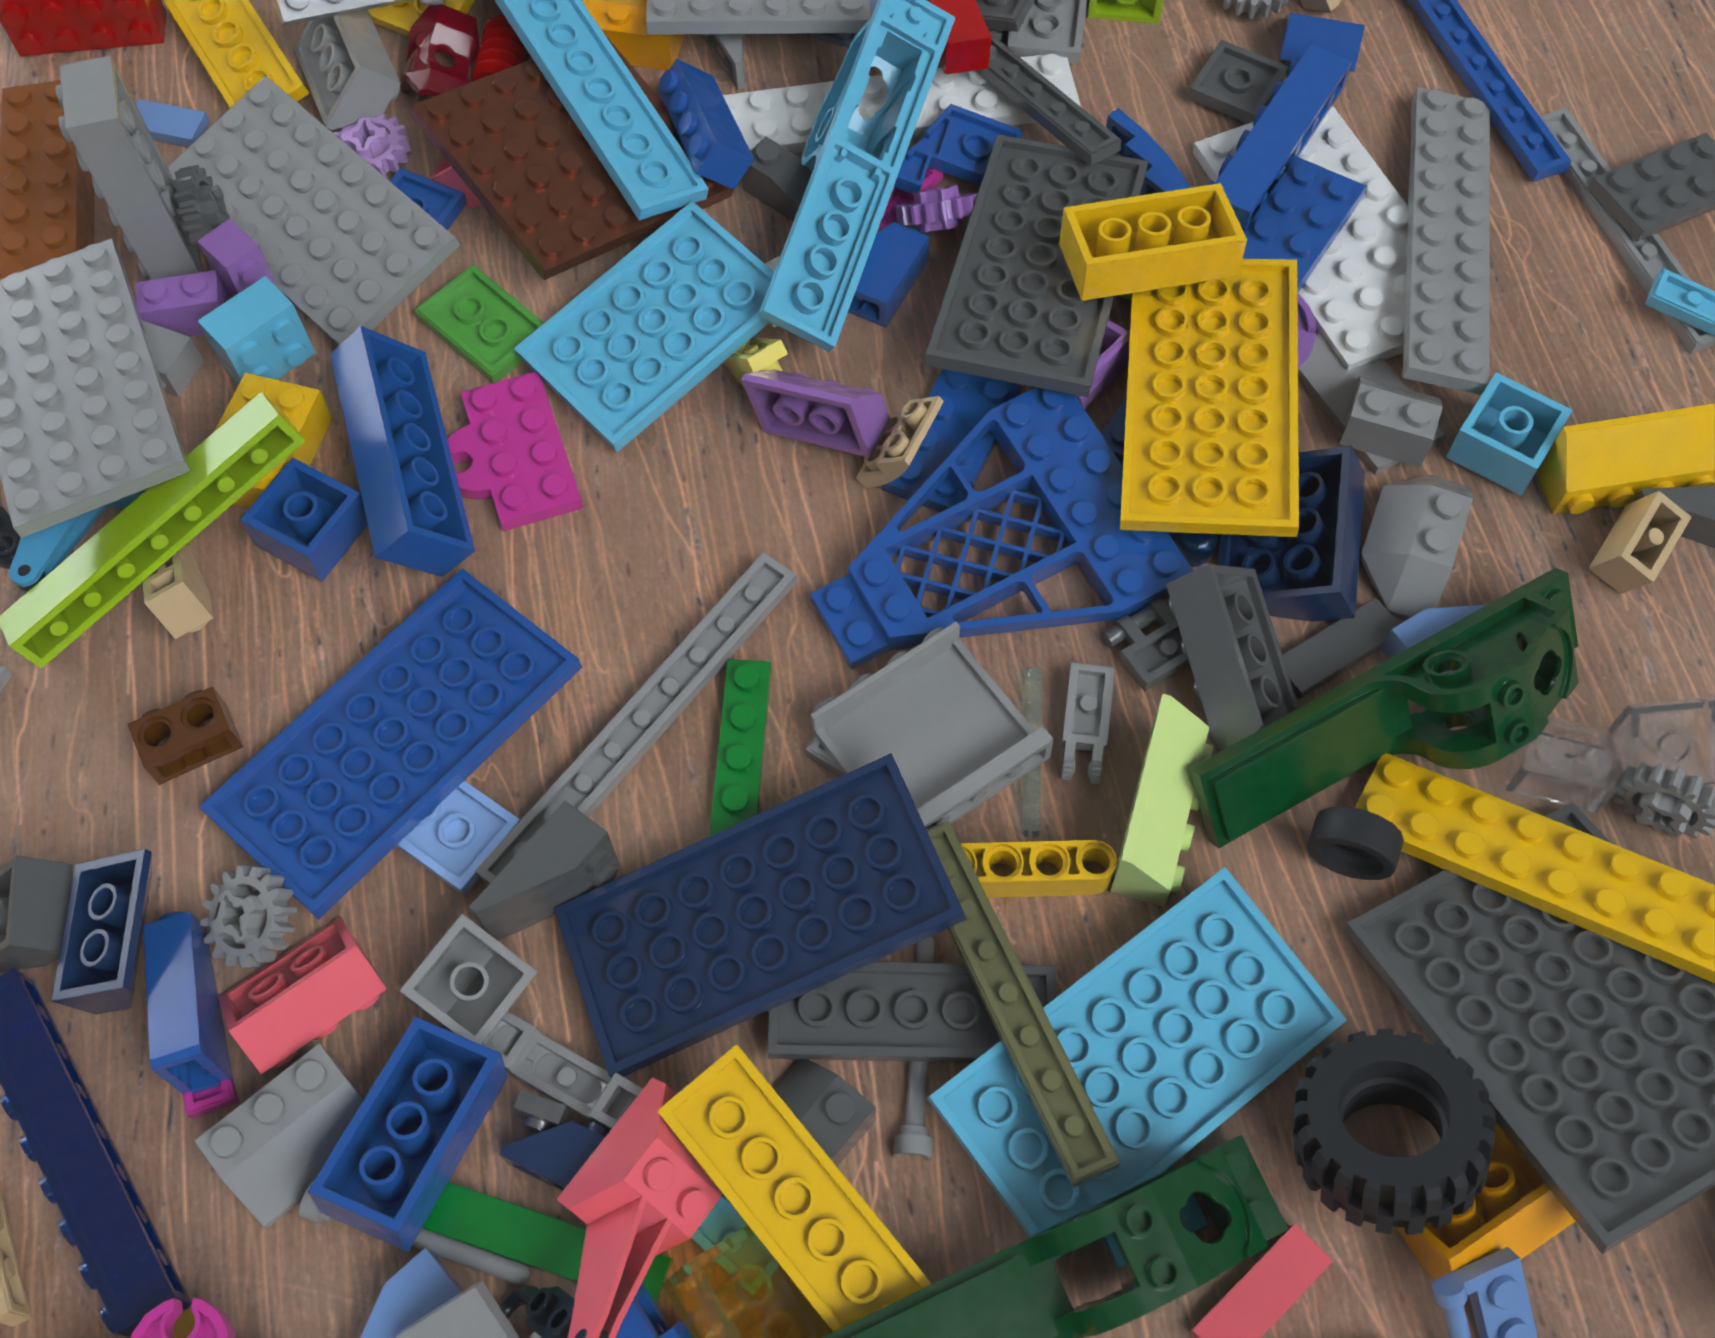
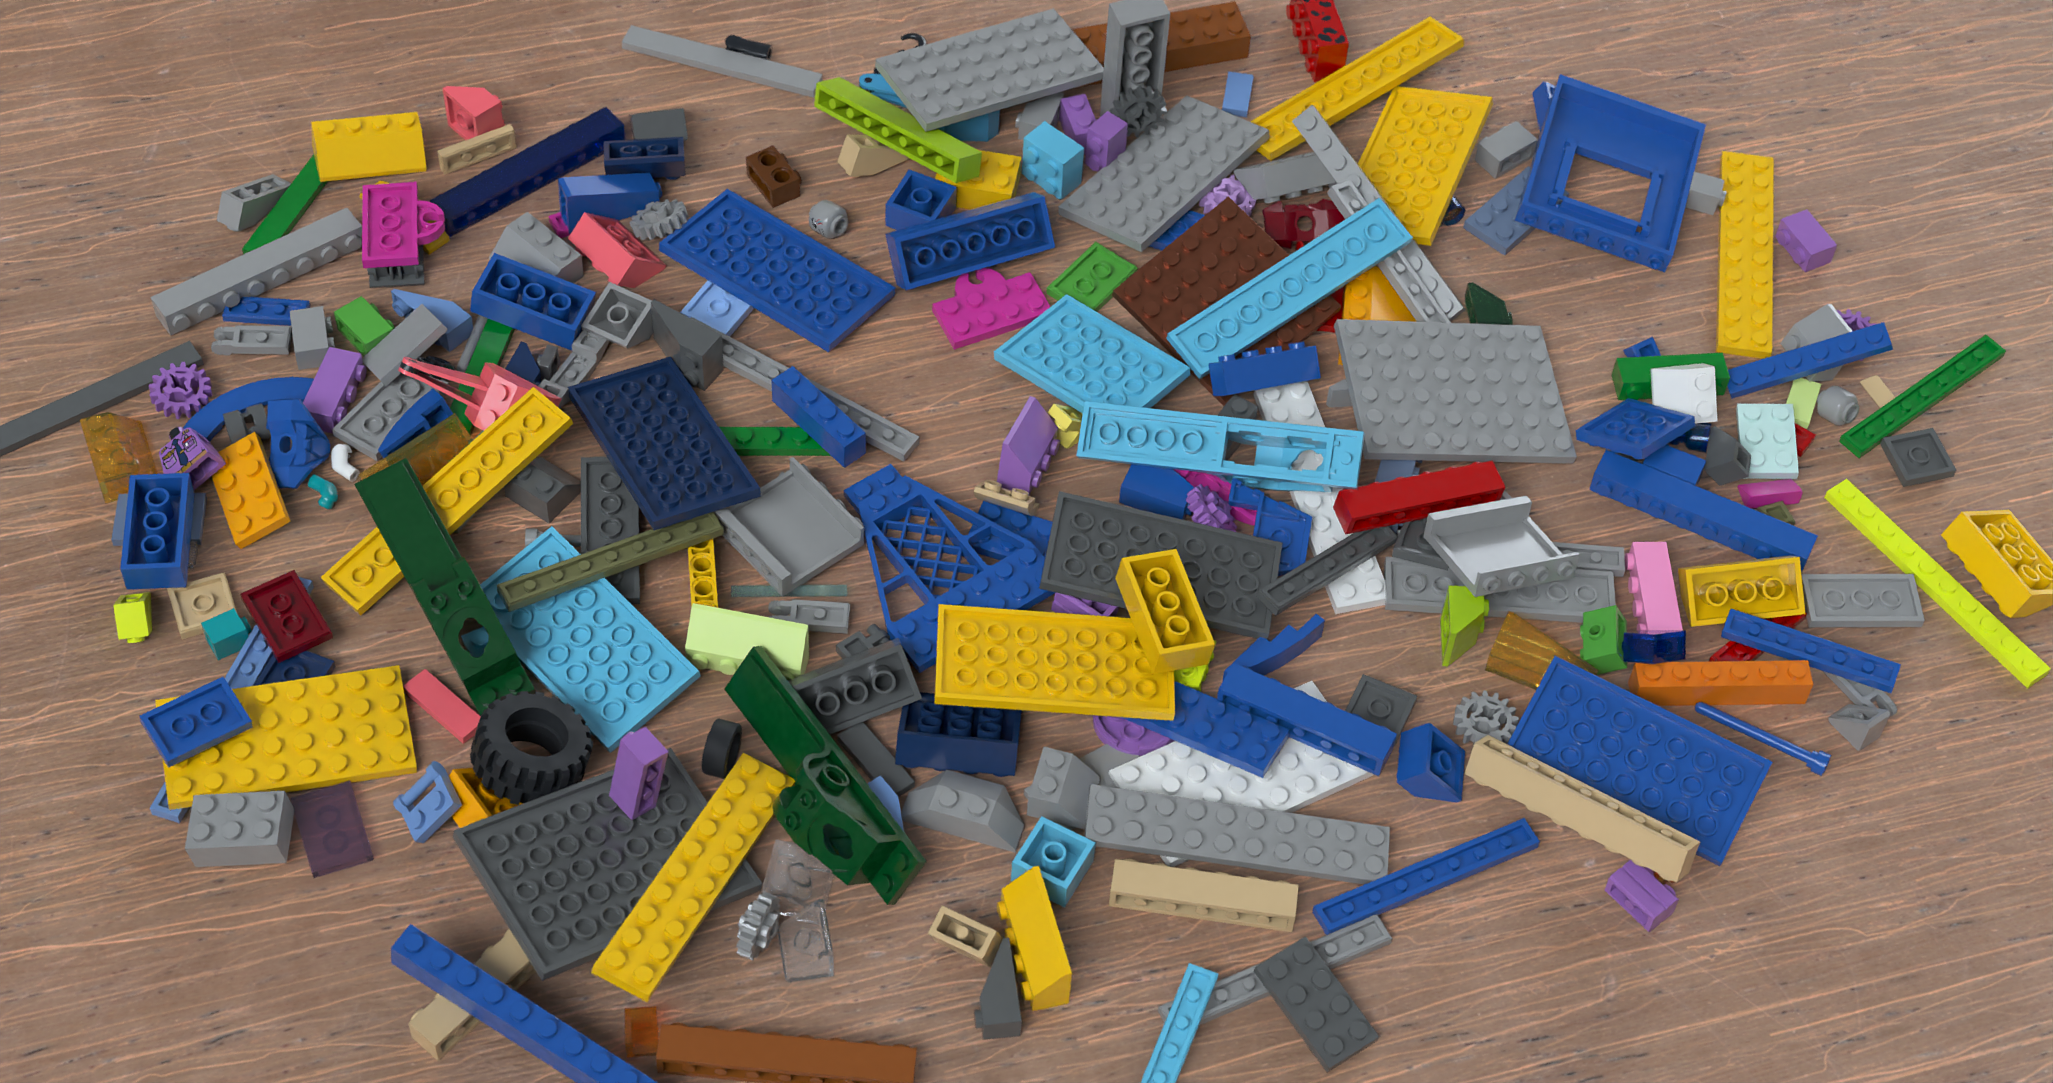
camera: 80 degrees right, 10 degrees down
(300, 656) = (828, 219): none -> light grey head
(728, 676) = (818, 416): none -> blue brick
(1481, 938) = (638, 773): none -> medium lavender brick
(1531, 282) = (1204, 895): none -> tan brick

